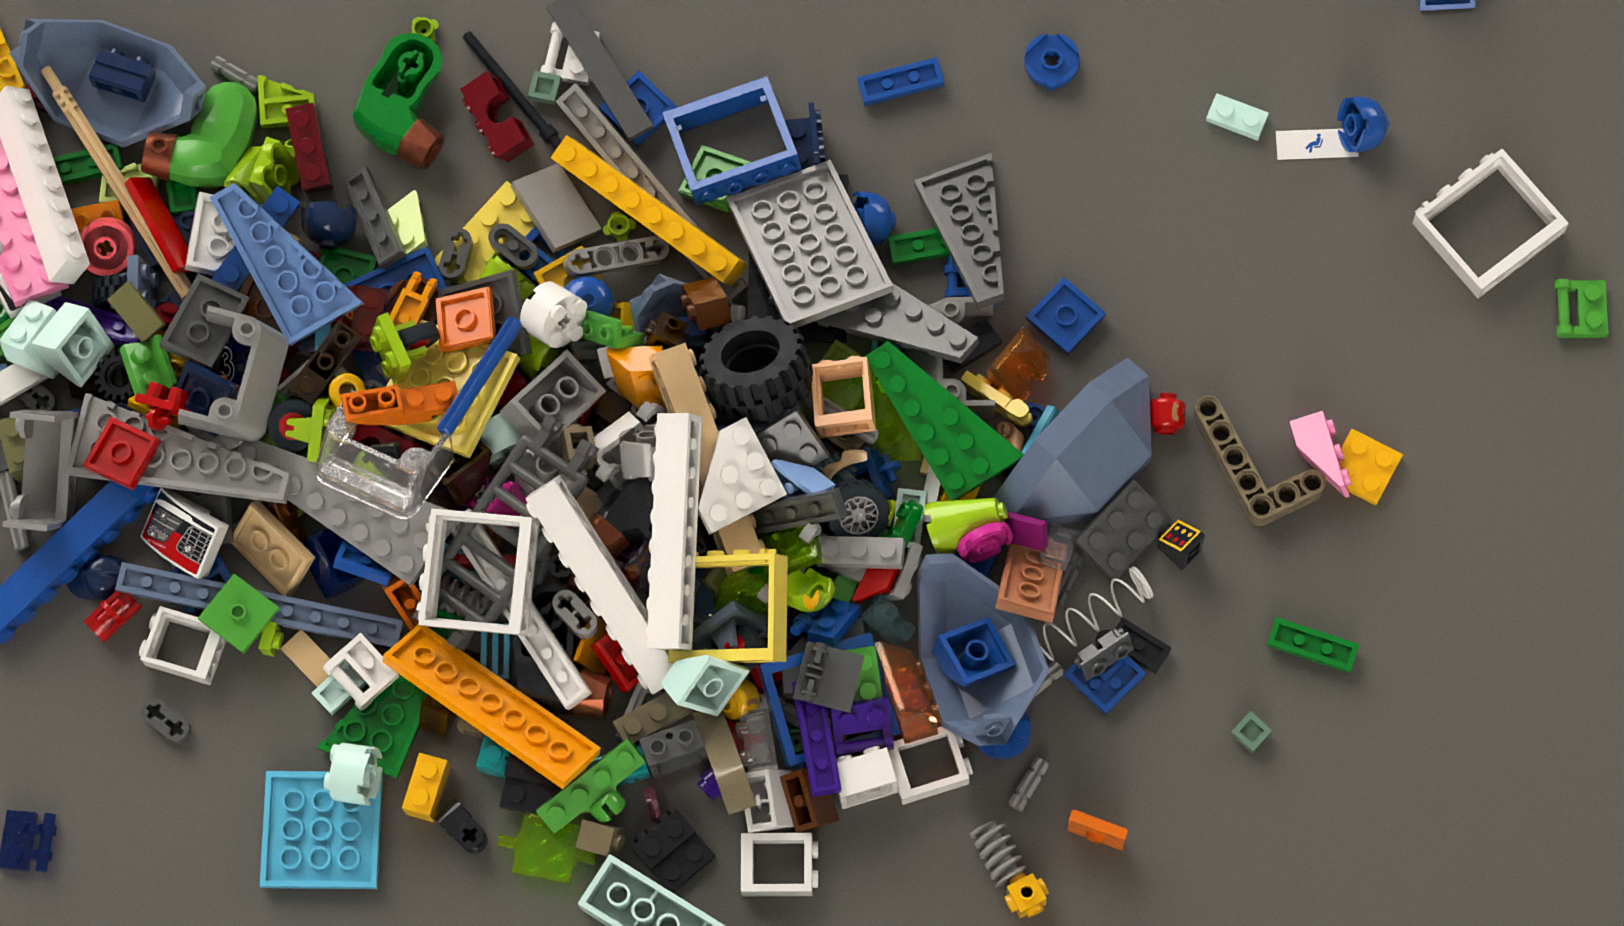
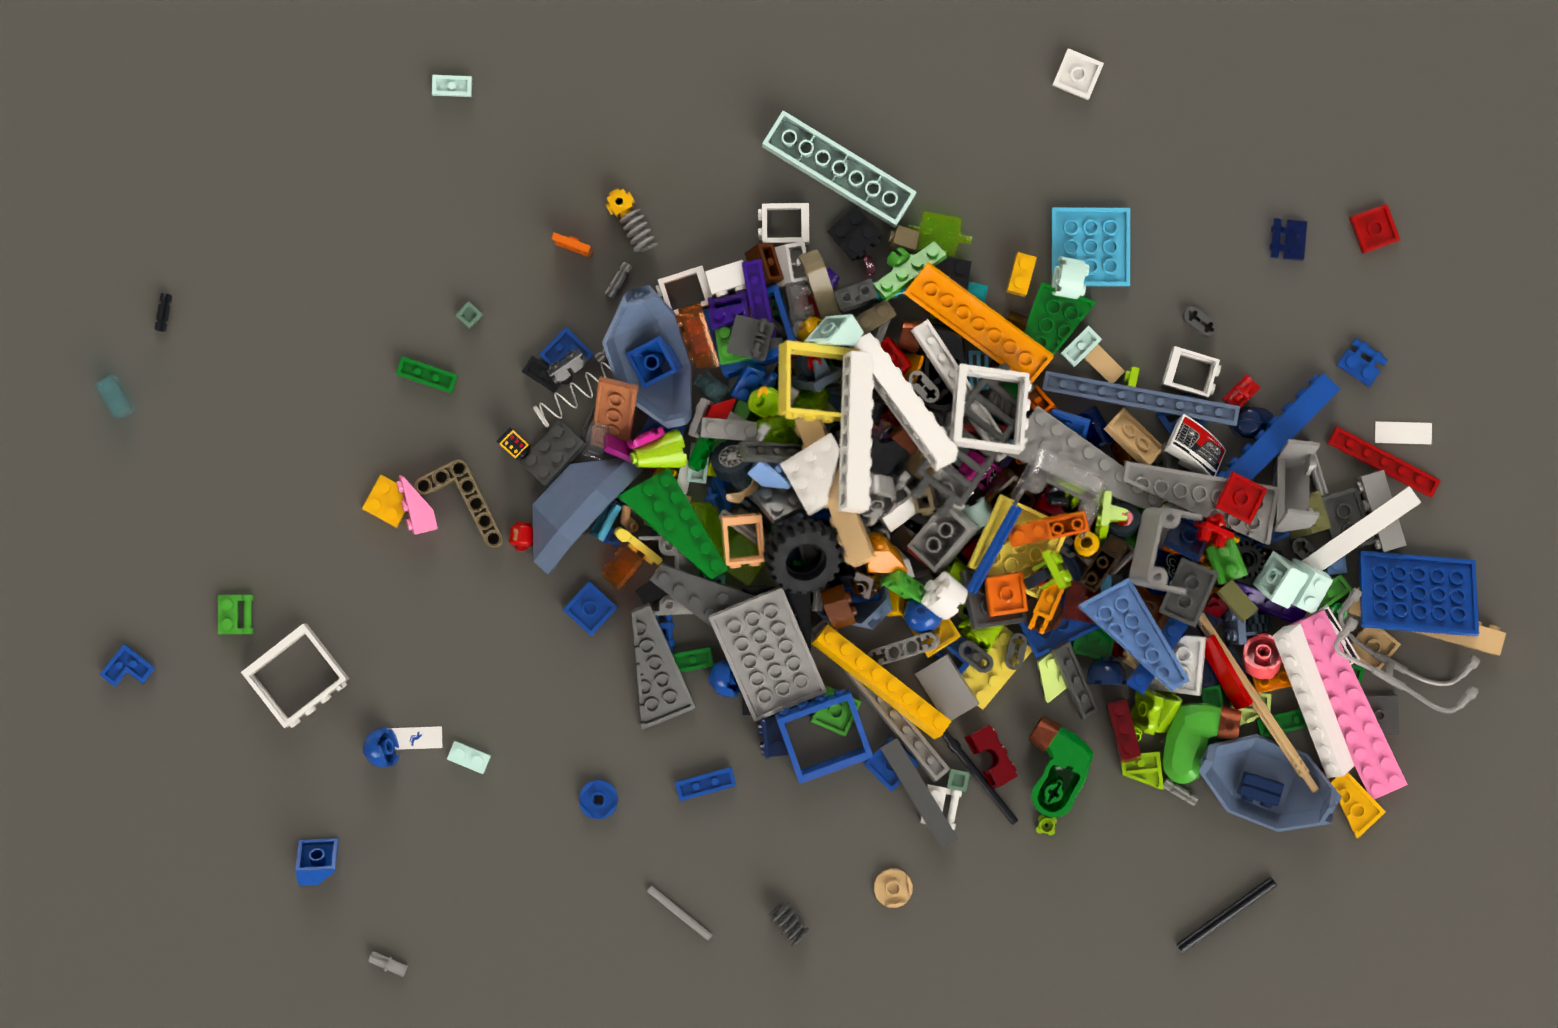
camera: 170 degrees right, 15 degrees up
(238, 613) = (1154, 389): bright green plate -> none
(367, 664) = (1063, 355): white plate -> none
(460, 825) = (999, 252): black piece -> none
(619, 219) = (907, 674): lime plate -> none

